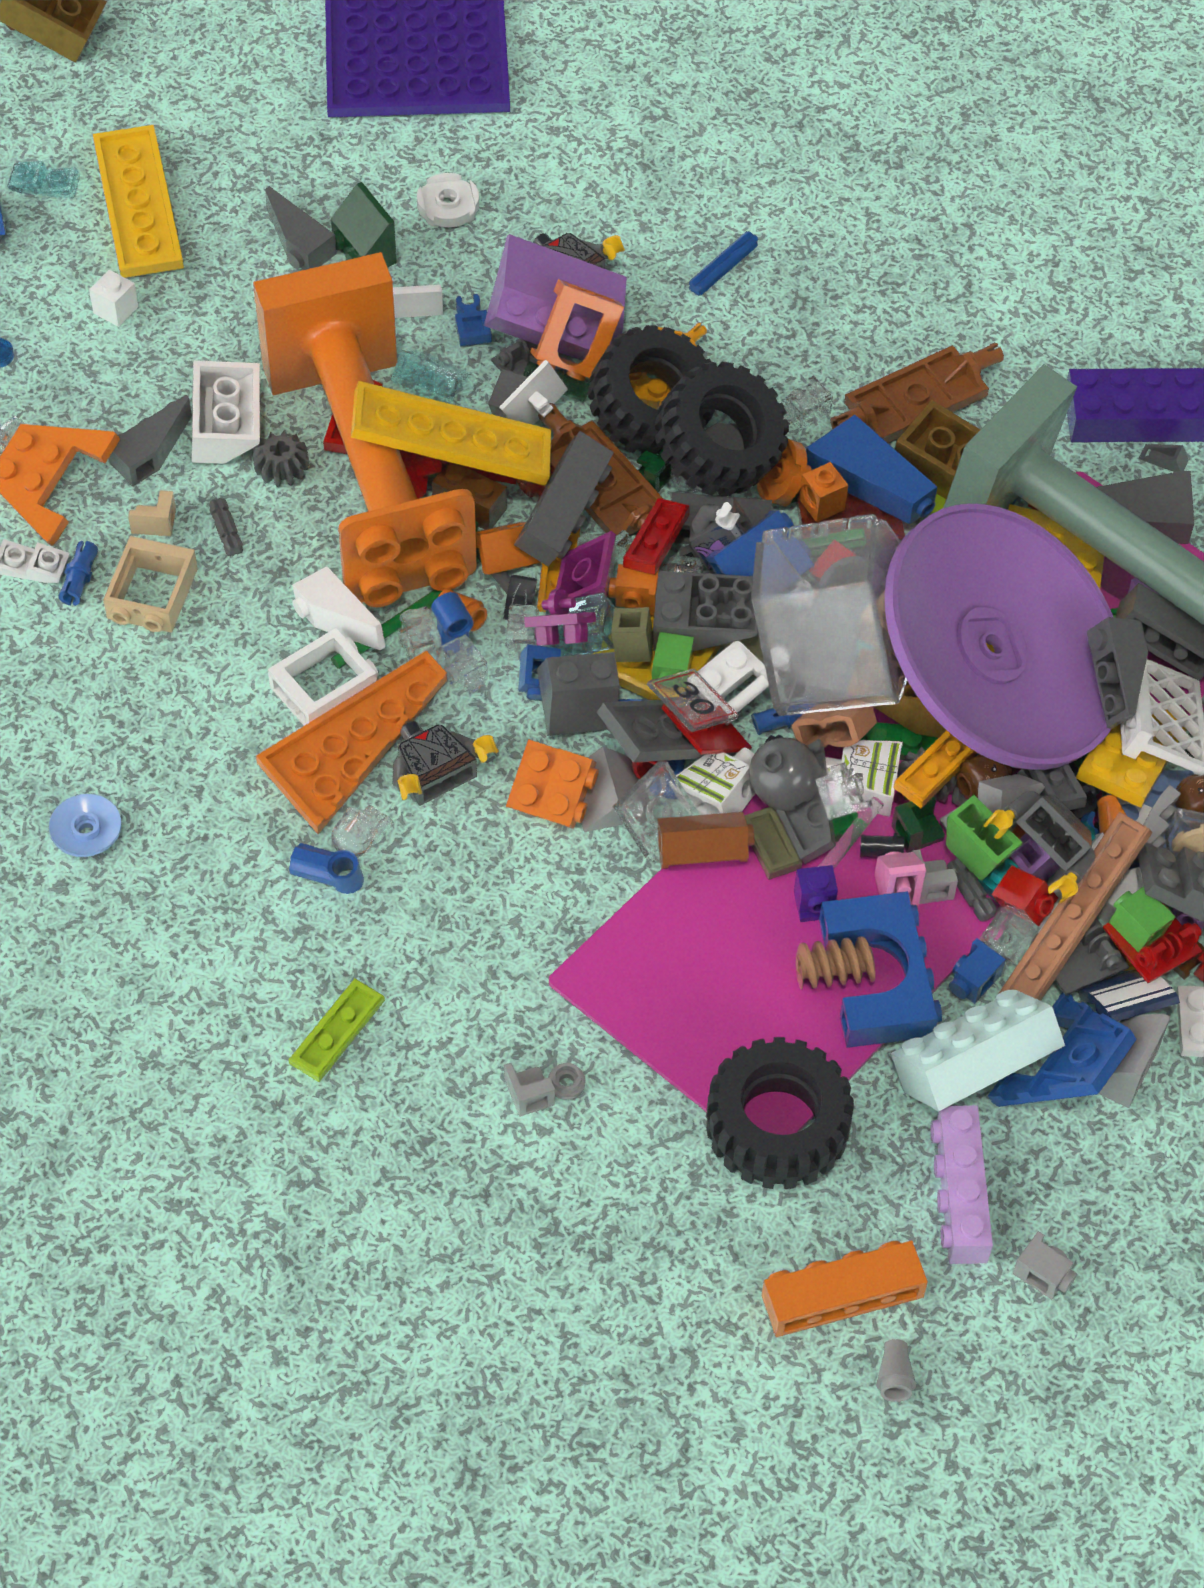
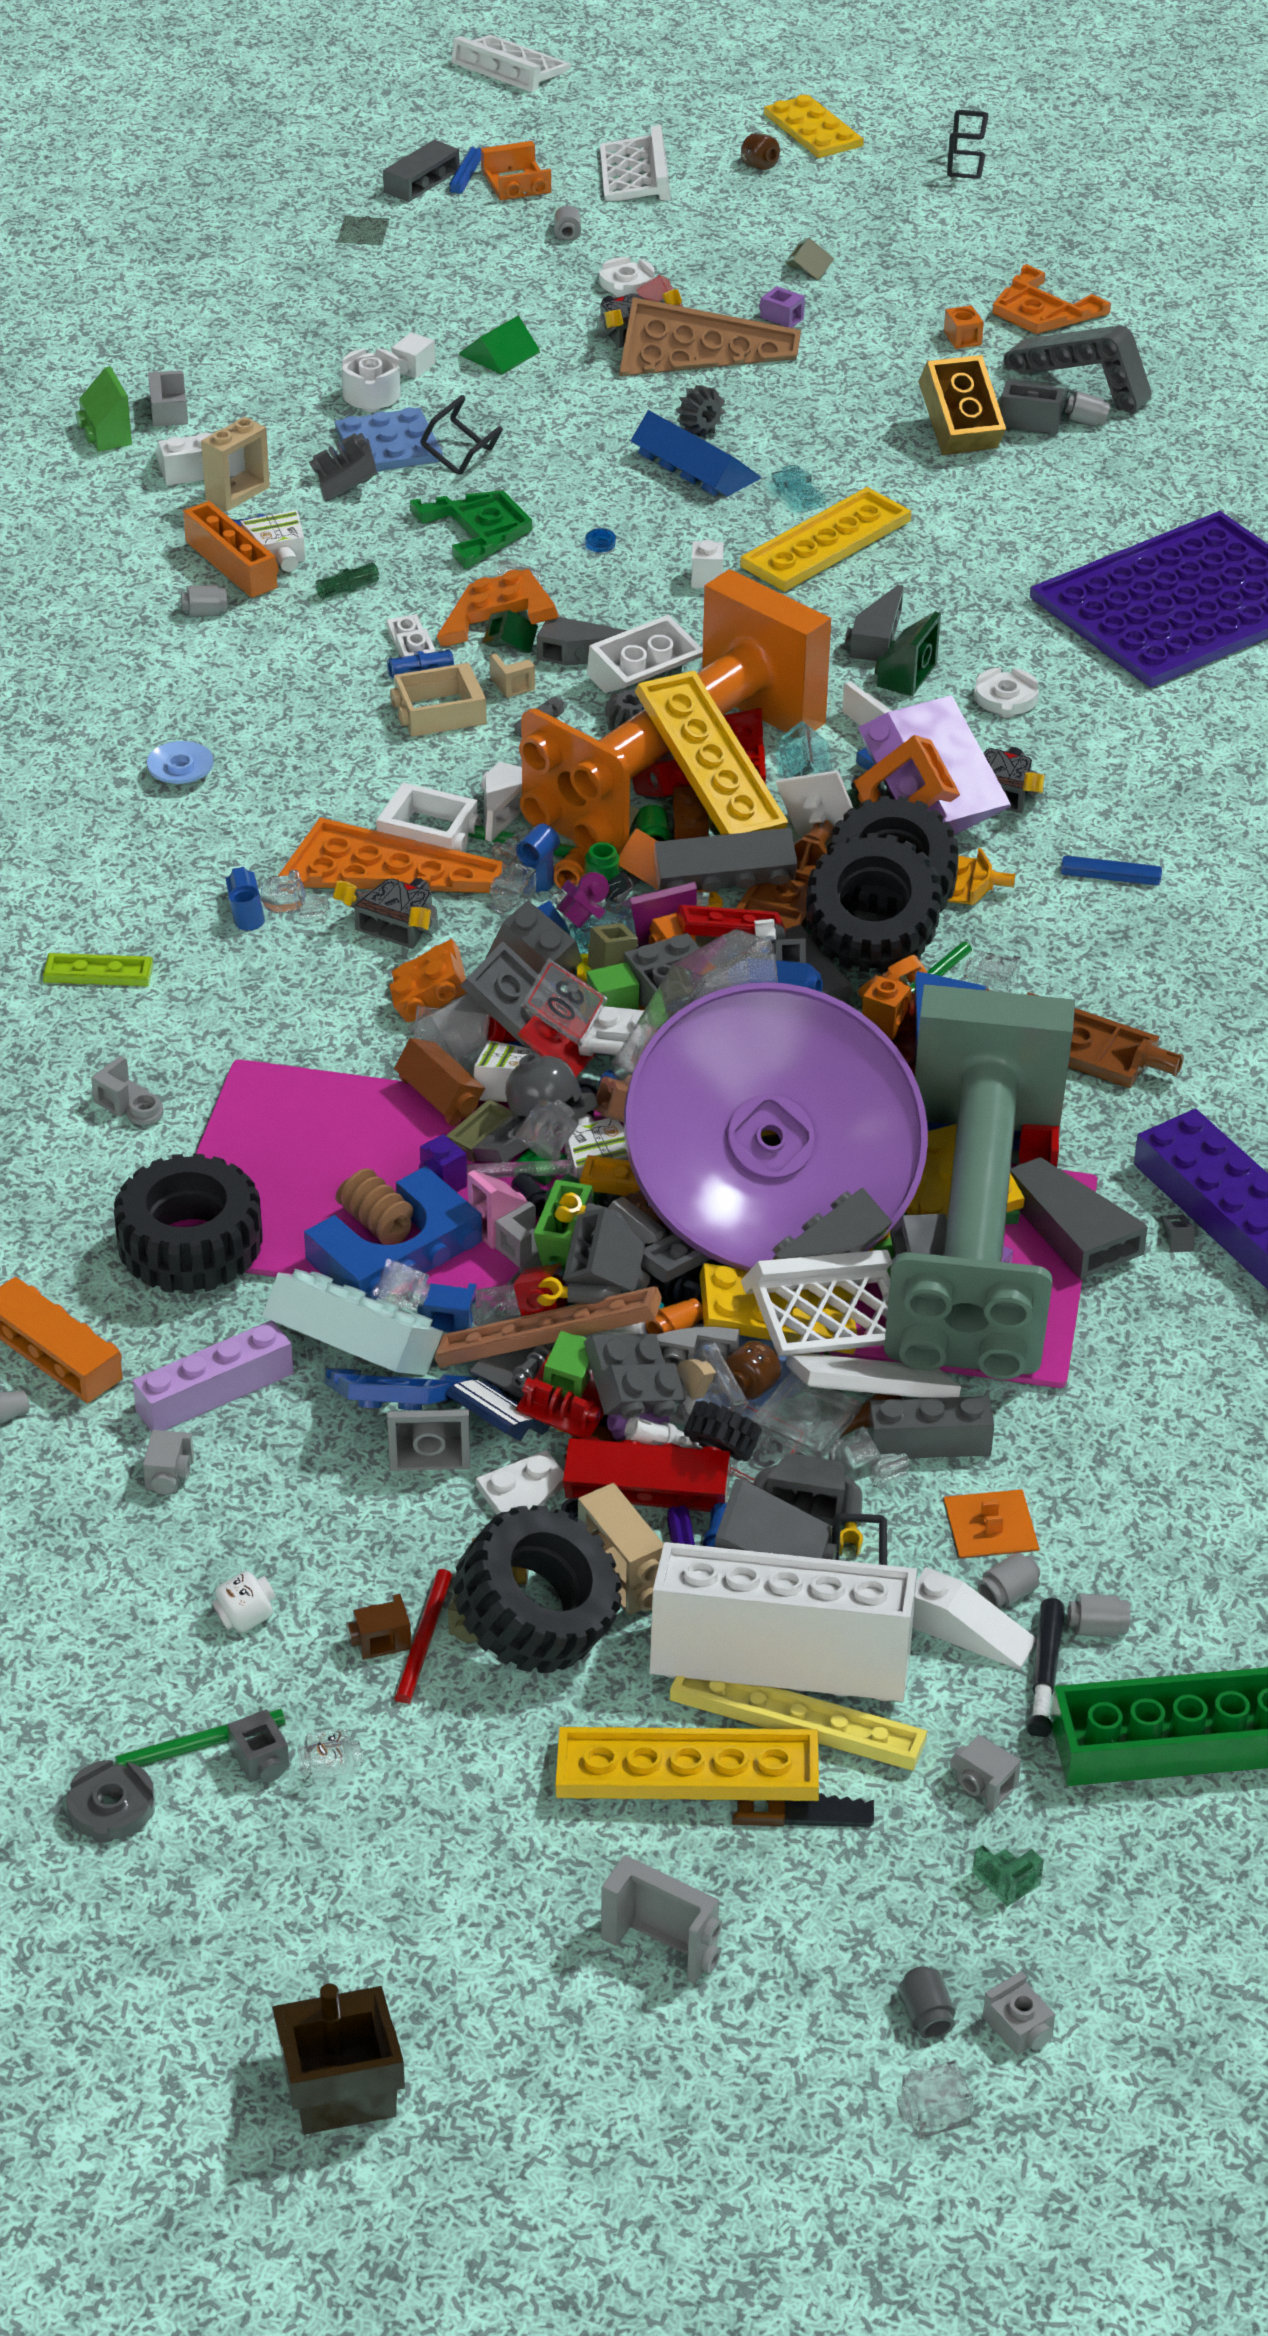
camera: 60 degrees right, 15 degrees down
(90, 486) = (510, 630): none -> dark green panel
(491, 587) = (602, 859): none -> green brick
(965, 991) = (402, 1285): none -> clear brick

